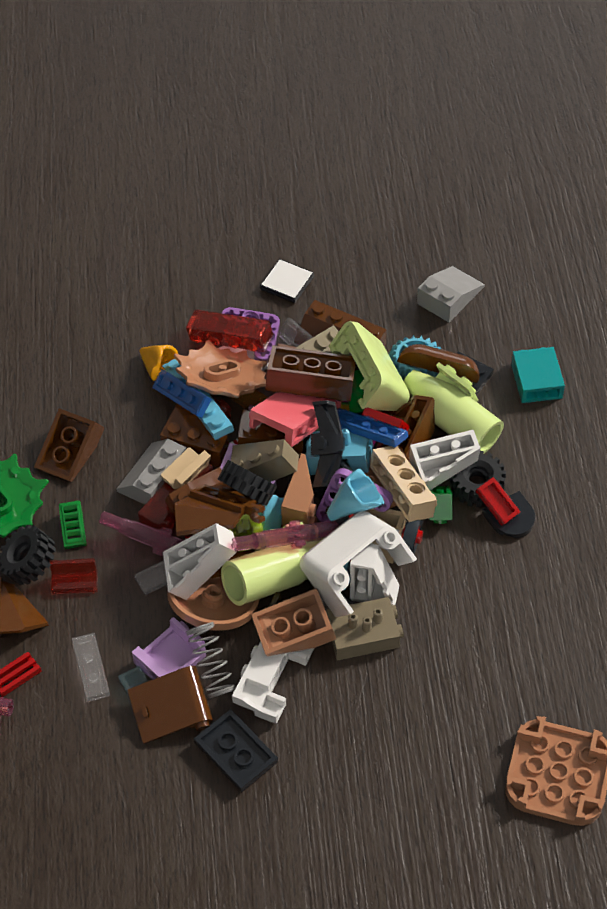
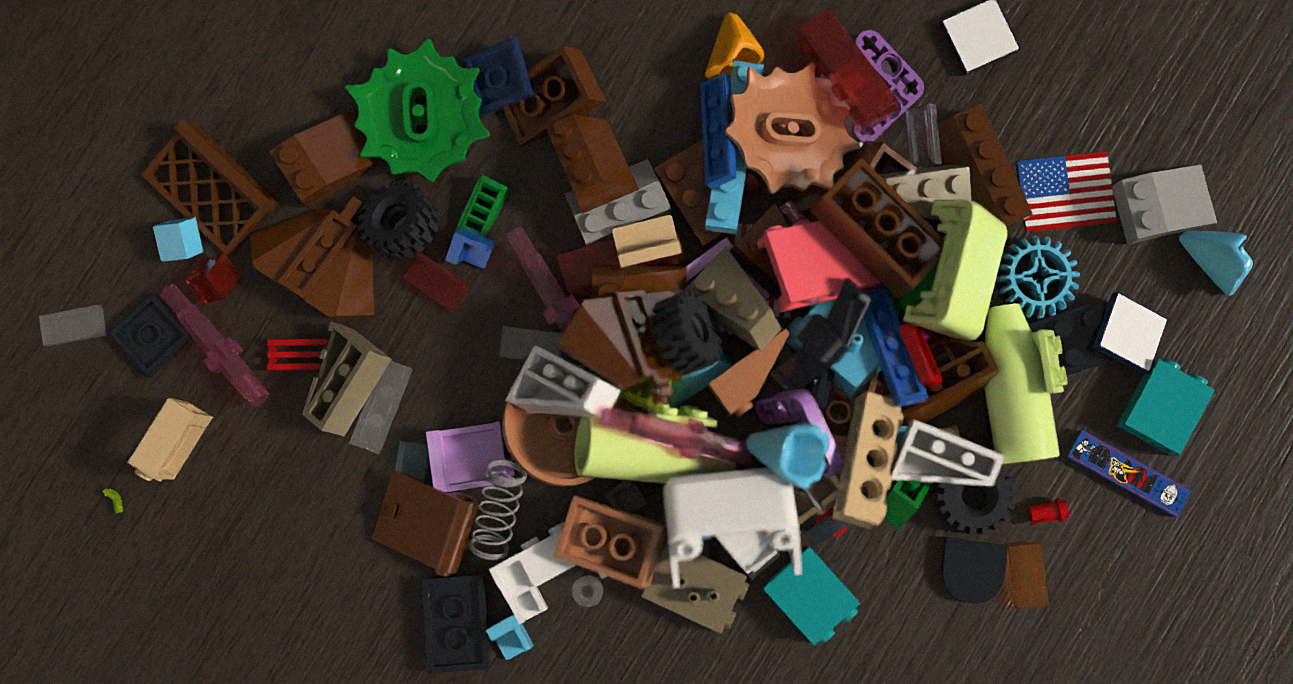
camera: 45 degrees right, 30 degrees up
(32, 451) = (501, 76): none -> dark blue tile
(57, 659) = (345, 380): none -> dark tan wedge
(82, 545) = (470, 248): none -> blue panel
(117, 458) = (591, 160): none -> reddish brown slope
(276, 732) = (510, 637): none -> medium azure panel
(302, 671) = (578, 595): none -> clear plate
(399, 316) = (1067, 191): none -> sticker
(428, 357) = (1057, 311): reddish brown brick -> none
(435, 587) = (813, 599): none -> teal brick
(488, 353) = (1130, 333): none -> white tile
(497, 501) = (966, 549): red tile -> none
(499, 293) = (1219, 256): none -> medium azure hat
(528, 457) = (1048, 512): none -> red pin
(544, 499) = (1028, 576): none -> clear orange tile
(548, 418) = (1128, 473): none -> tile

